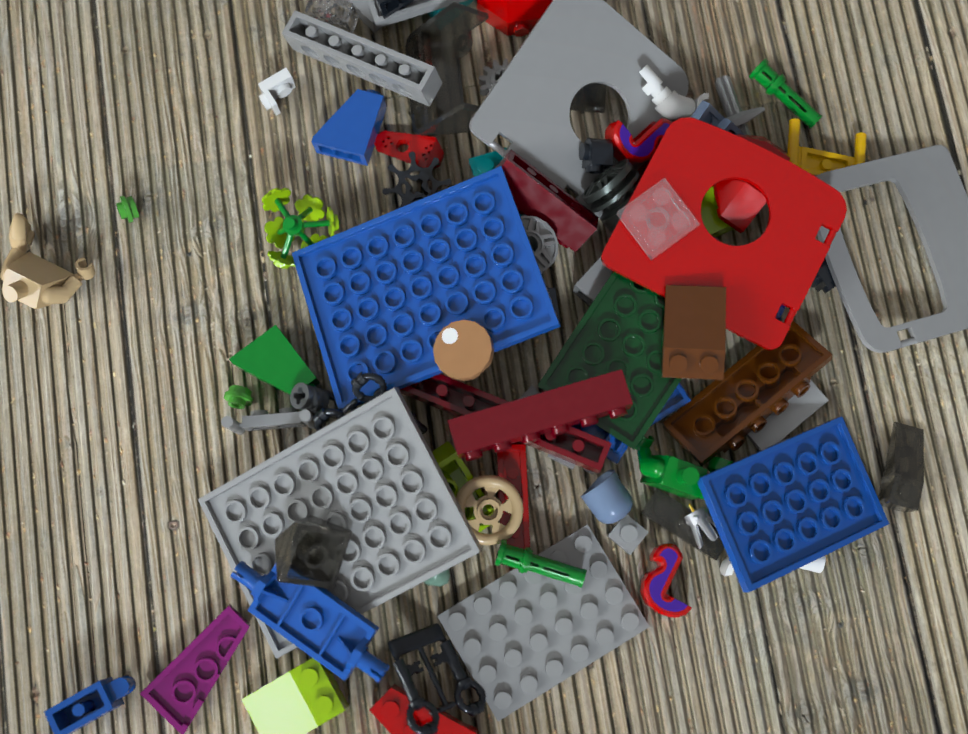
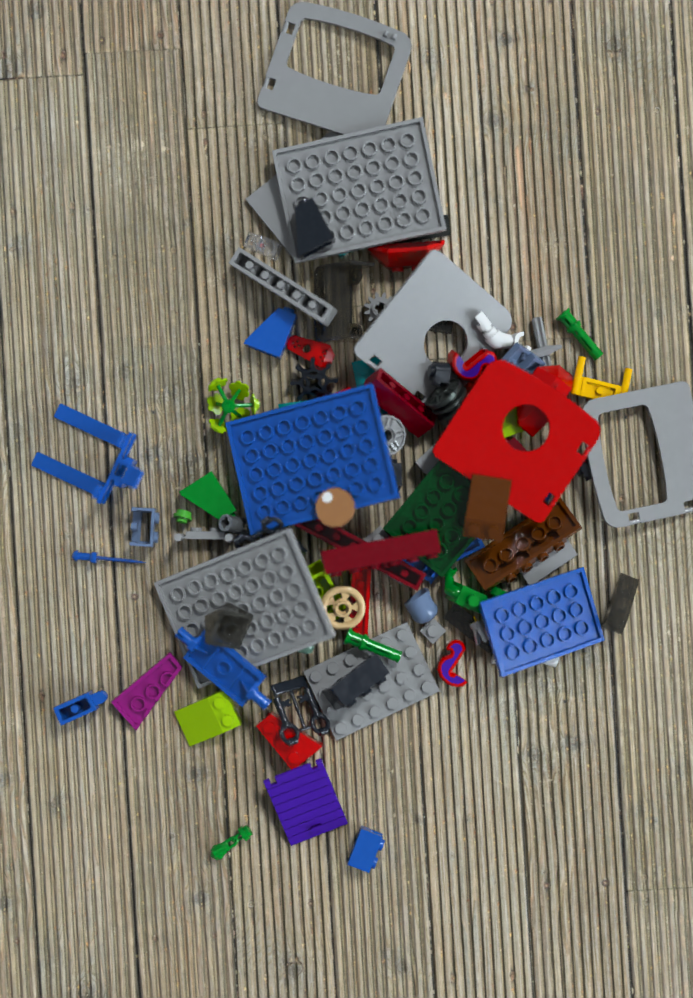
camera: 10 degrees right, 10 degrees up
(34, 279) = (49, 424): tan torso -> none
(108, 470) = (76, 555): none -> blue sword
(127, 208) = (113, 377): bright green plate -> none
(140, 345) = (99, 489): none -> blue piece
(170, 417) = (137, 524): none -> sand blue window
(276, 87) = (222, 297): white bracket -> none
(521, 625) = (356, 683): none -> black wedge
(657, 219) = (472, 429): clear plate -> none

